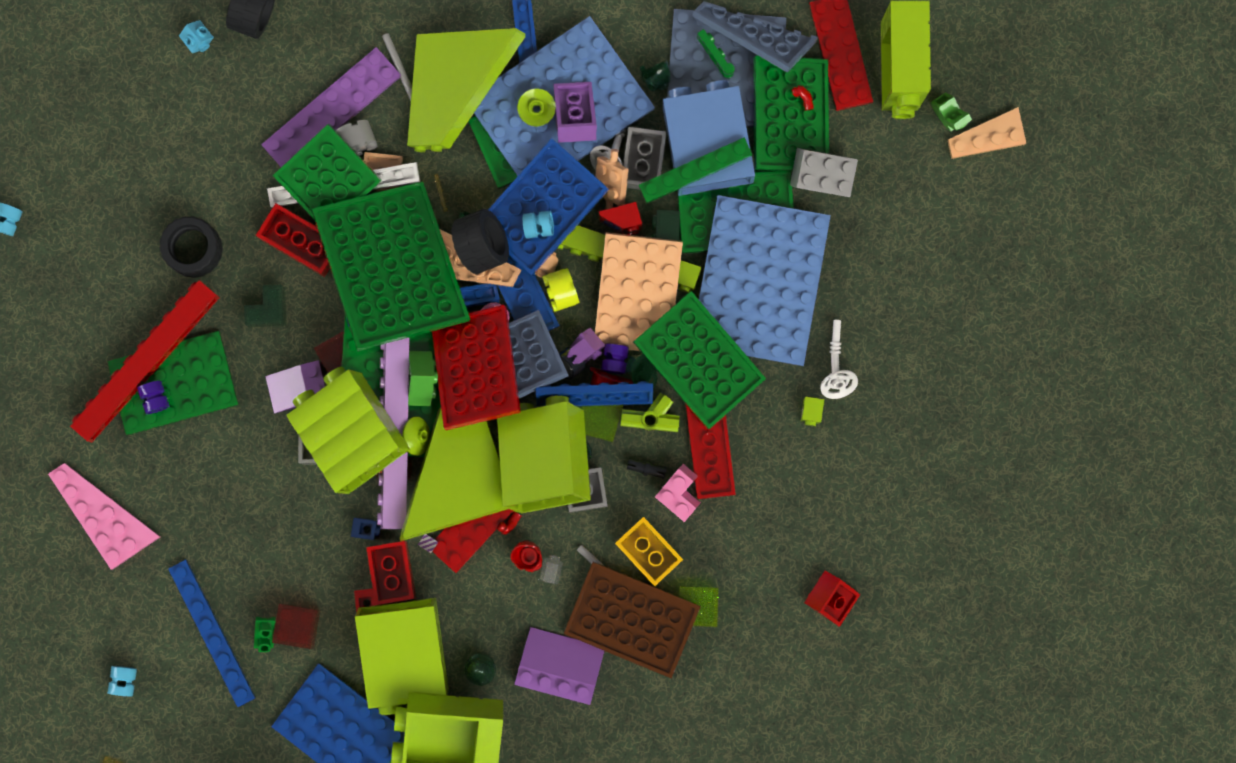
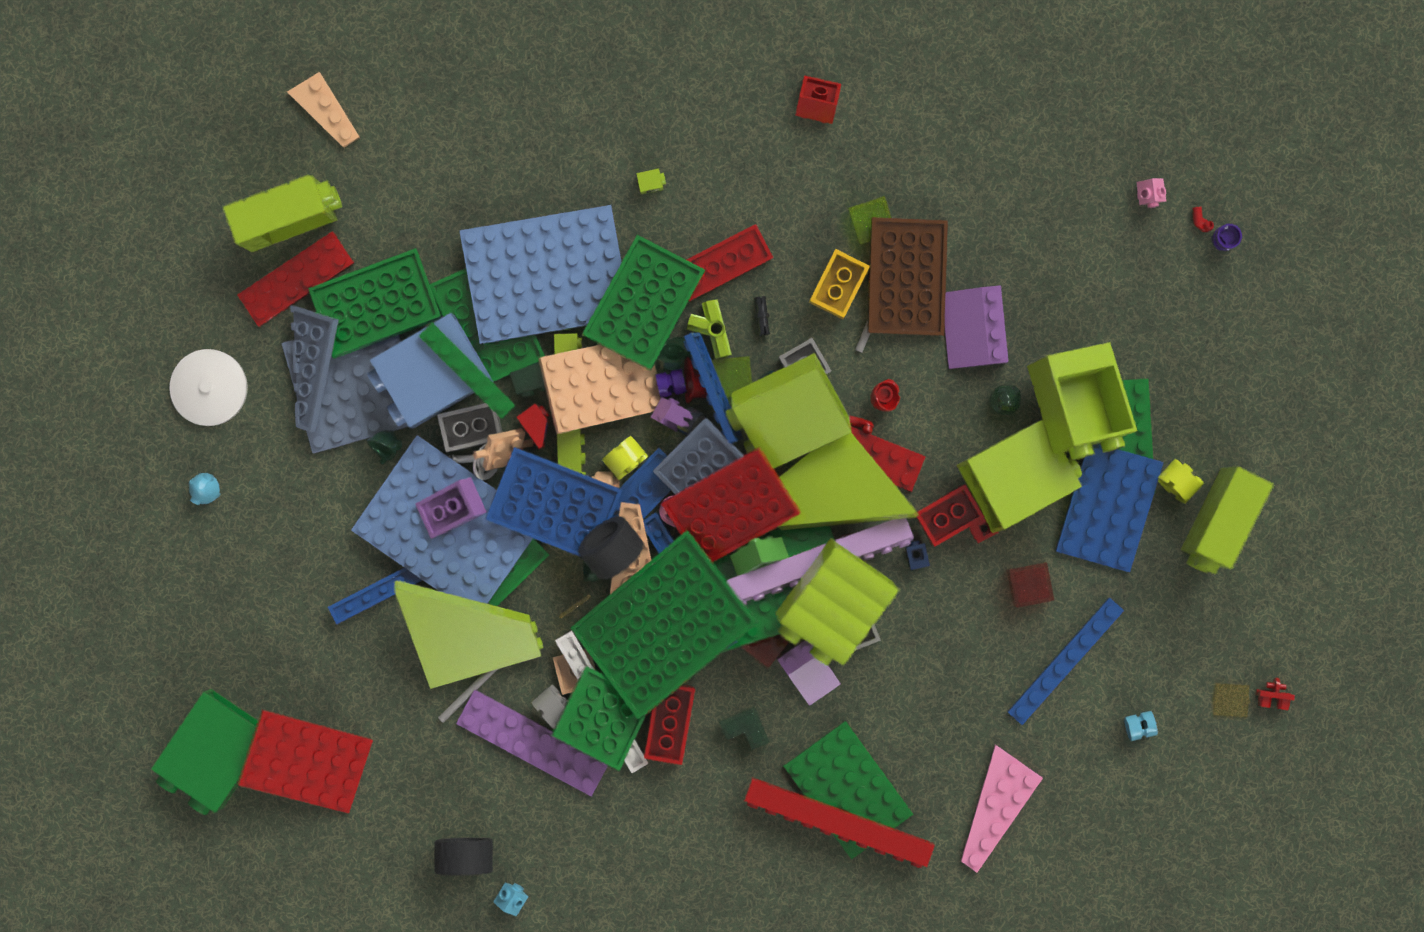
camera: 110 degrees left, 5 degrees up
(153, 397) = (870, 800): dark purple wheel -> none
(171, 235) = (708, 845): black tyre -> none
(264, 633) = (1048, 611): green hips -> none
(416, 435) = (814, 539): lime dish -> none
(428, 543) = (908, 491): sticker -> none
(535, 98) = (450, 545): lime dish -> none
(538, 224) = (573, 500): medium azure wheel -> none
(551, 570) = (889, 368): clear brick -> none
(676, 497) = (776, 279): bright pink brick -> none
(716, 55) = (344, 395): green plate -> none
(805, 95) = (352, 295): red arm -> none
(823, 172) = (420, 251): light grey brick -> none
(837, 378) = (611, 168): white dish -> none
(949, 112) = (317, 153): bright green brick -> none

